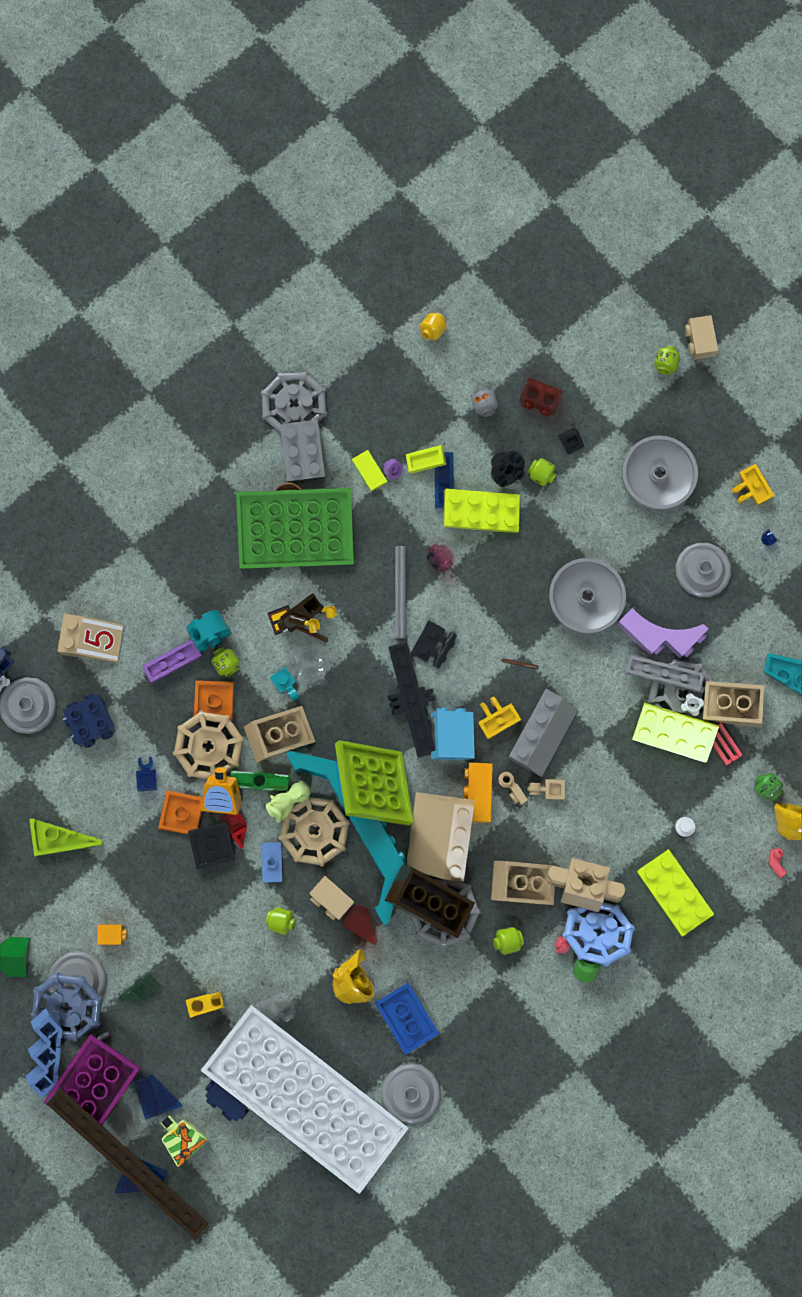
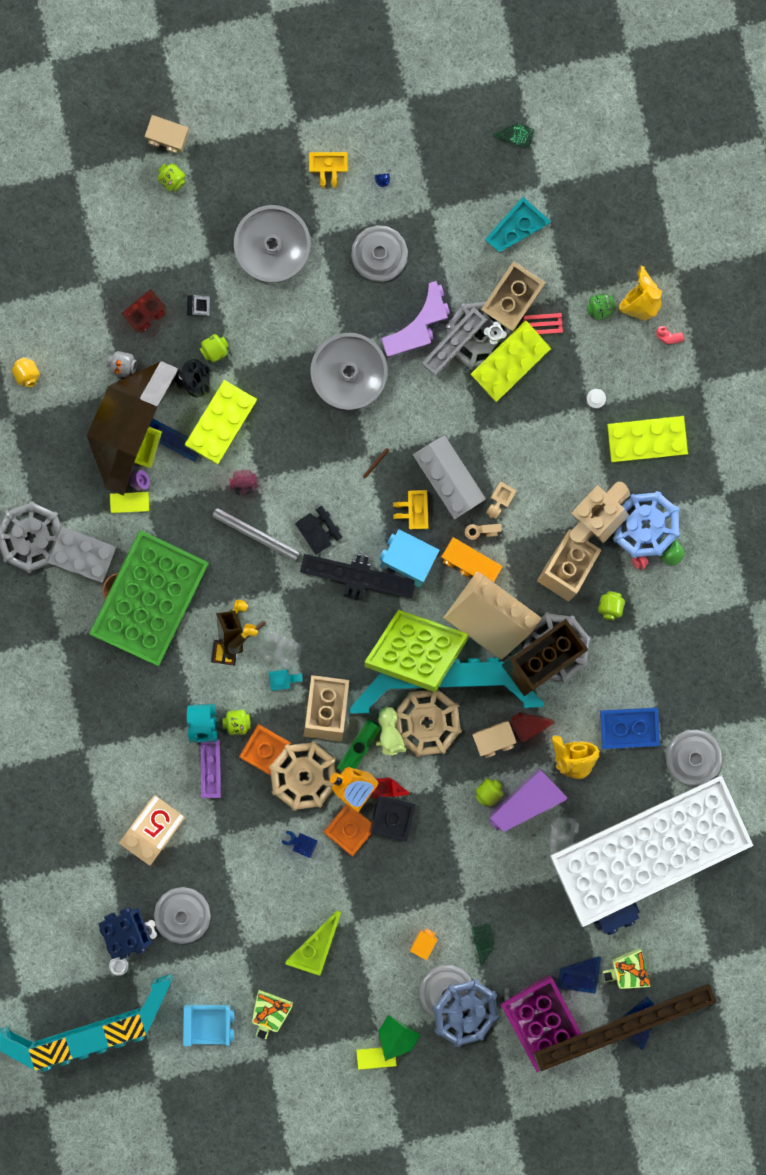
camera: 60 degrees left, 10 degrees up
(45, 1053) = (496, 1050): medium blue brick -> none
(88, 721) = (225, 869): dark blue brick -> none
(204, 1004) = (525, 894): yellow leg -> none
(272, 862) = (434, 773): medium blue plate -> none
(292, 959) = (526, 801): none -> medium lavender slope
(436, 425) = (124, 421): none -> dark brown panel

